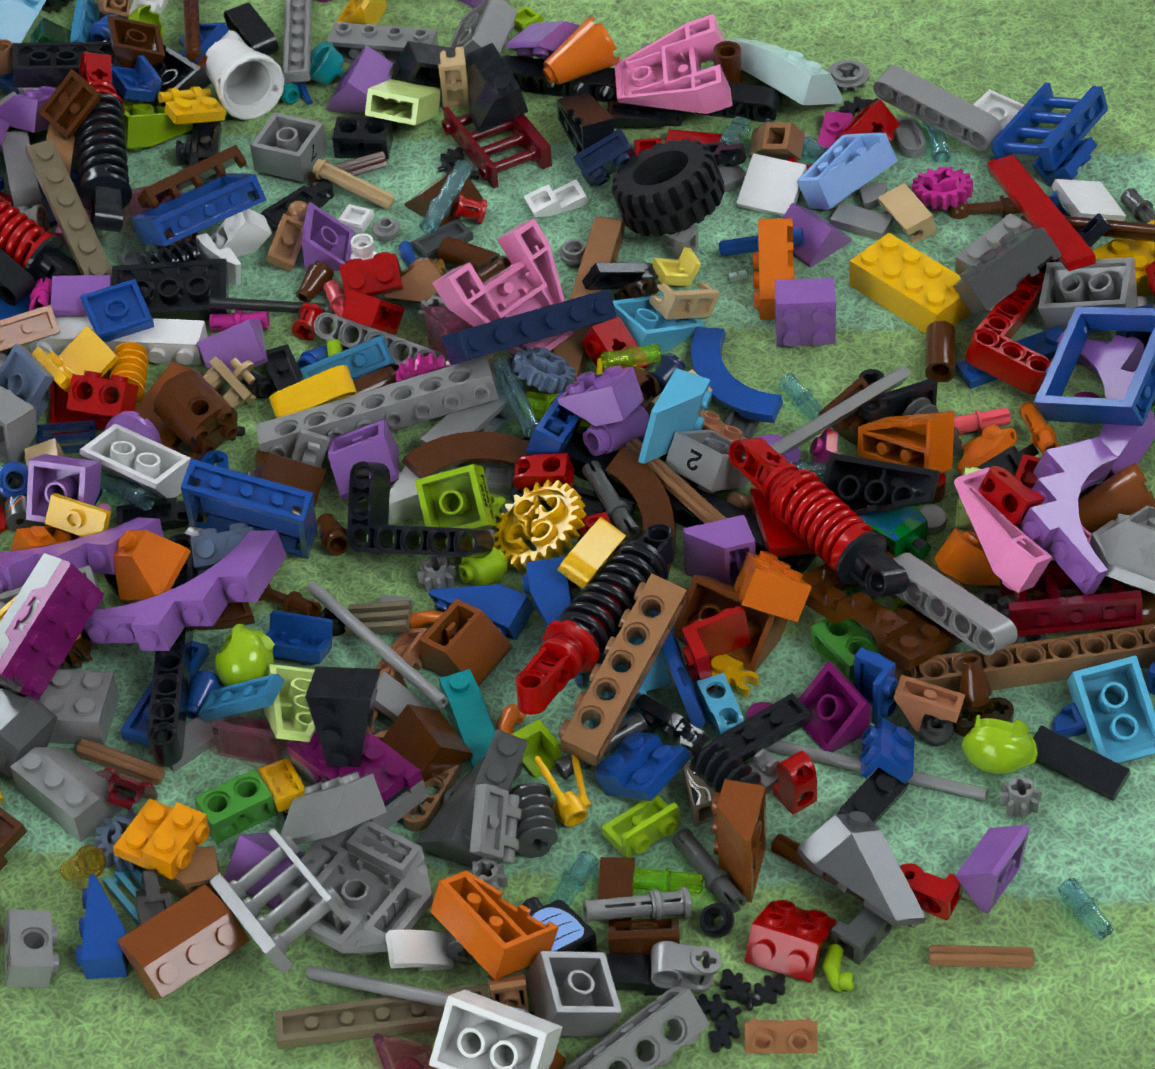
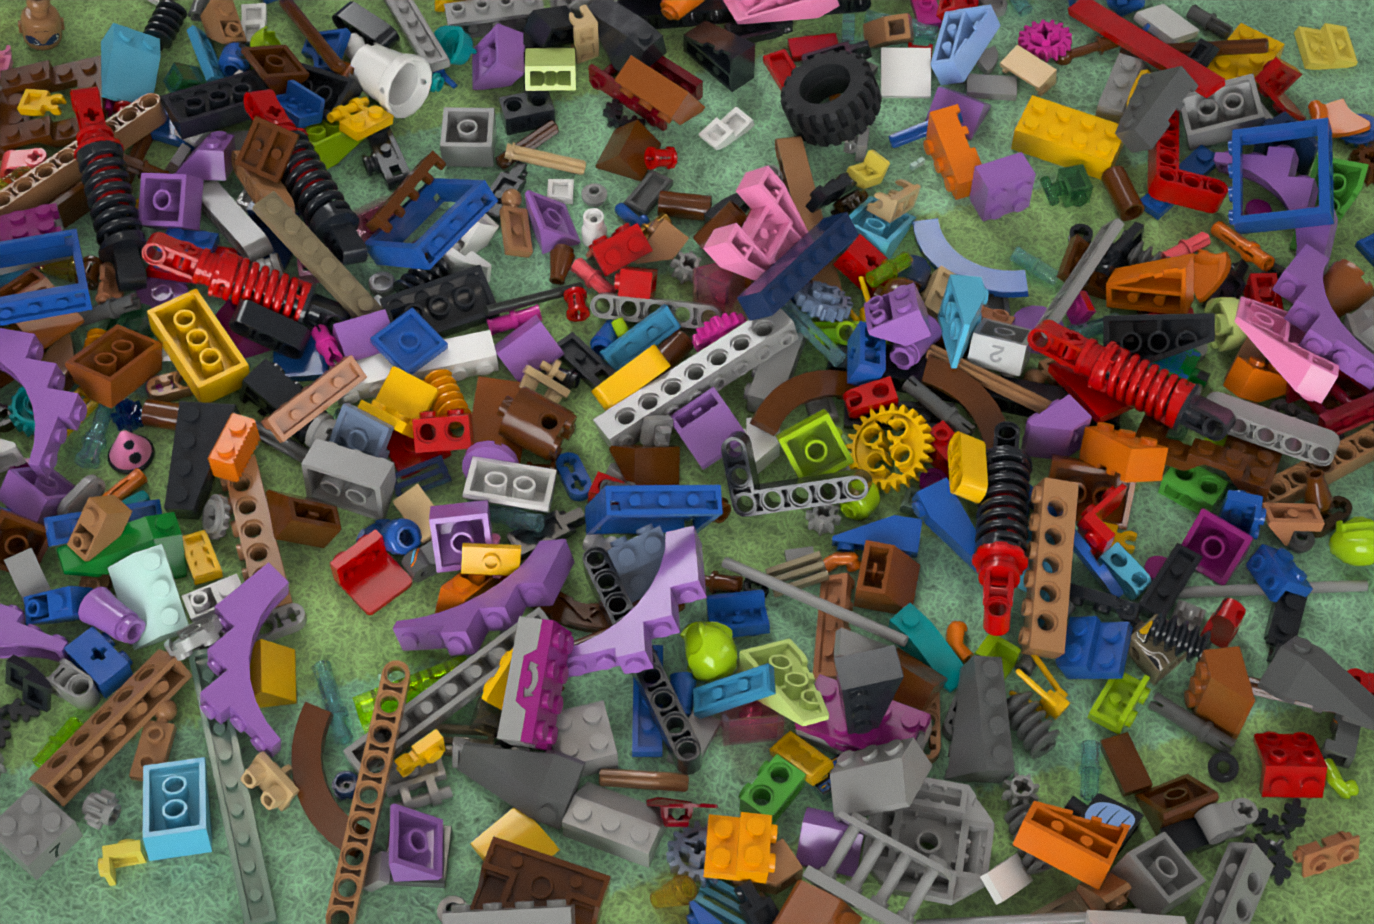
camera: 25 degrees left, 10 degrees up
(146, 565) = (584, 591): orange slope -> none
(441, 205) = (638, 163): clear light blue pin -> none
(492, 144) = (657, 92): none -> dark orange slope
(495, 823) = (1020, 756): light grey plate -> none
(604, 158) = (756, 80): dark blue bracket -> none
(654, 905) = (1168, 772): light grey pin -> none
(667, 880) = (1166, 744): clear neon green axle -> none
(887, 332) = (1071, 185): none -> clear green brick
(1008, 494) = (1283, 320): red leg -> none

